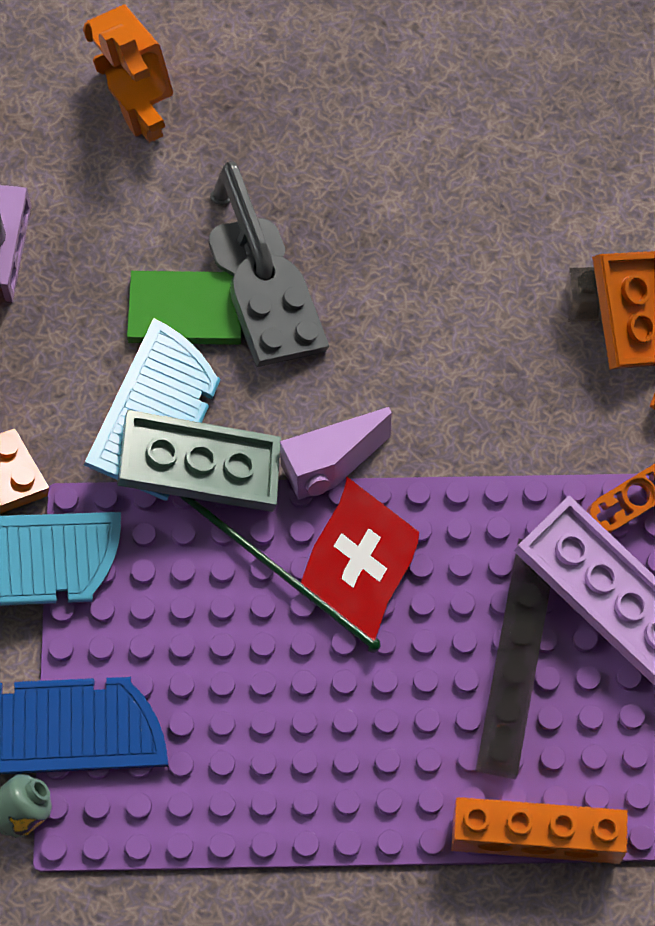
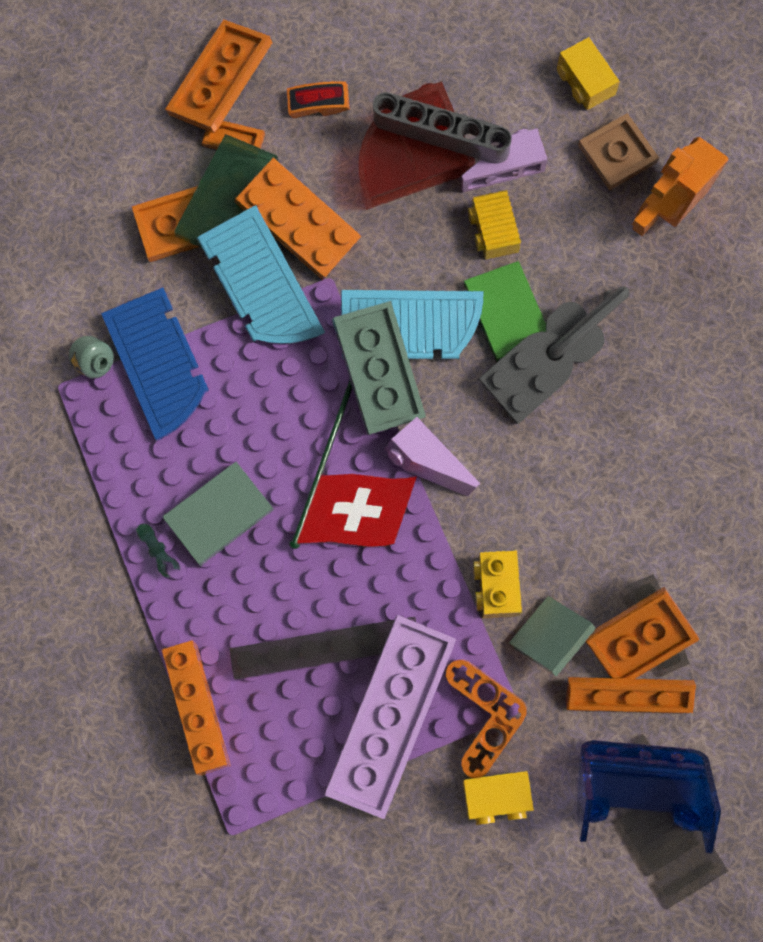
camera: 70 degrees right, 10 degrees up
(49, 119) = (618, 151): none -> medium nougat plate
(75, 277) = (495, 225): none -> yellow brick
(297, 721) = (218, 513): none -> sand green tile
(313, 812) = (156, 548): none -> piece
(513, 437) = (498, 584): none -> yellow brick
(597, 402) = (552, 635): none -> sand green tile

